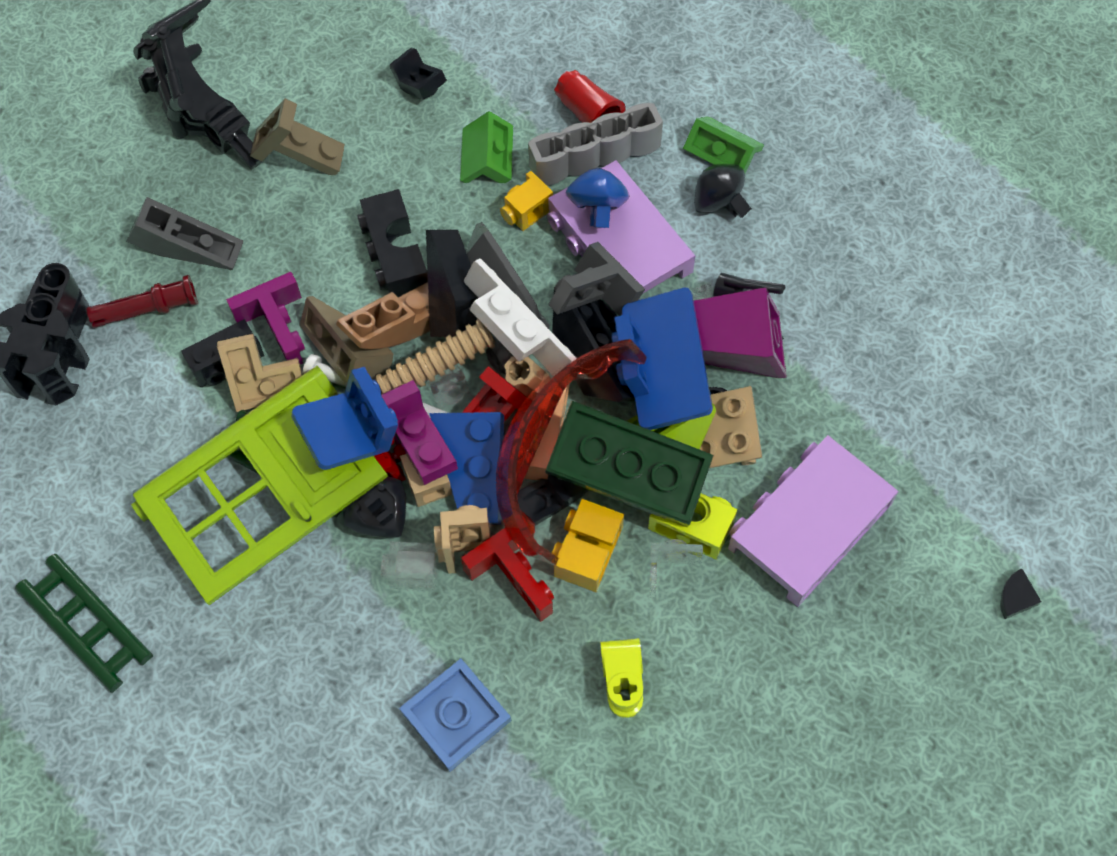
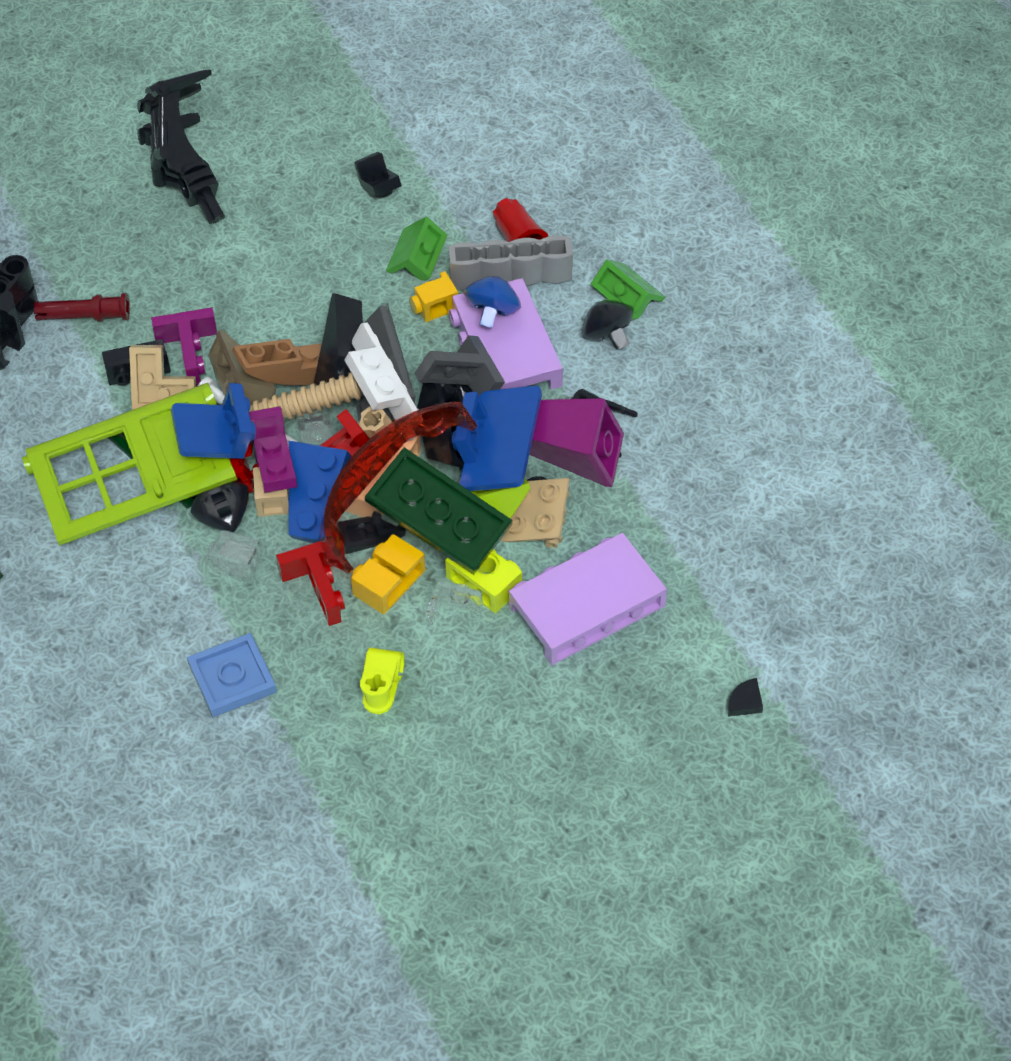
camera: 15 degrees right, 10 degrees down
(182, 237) = (131, 263): dark grey slope -> none
(296, 141) = (254, 207): dark tan bracket -> none
(385, 220) = (306, 286): black arch -> none
(460, 532) = (280, 533): tan bracket -> none

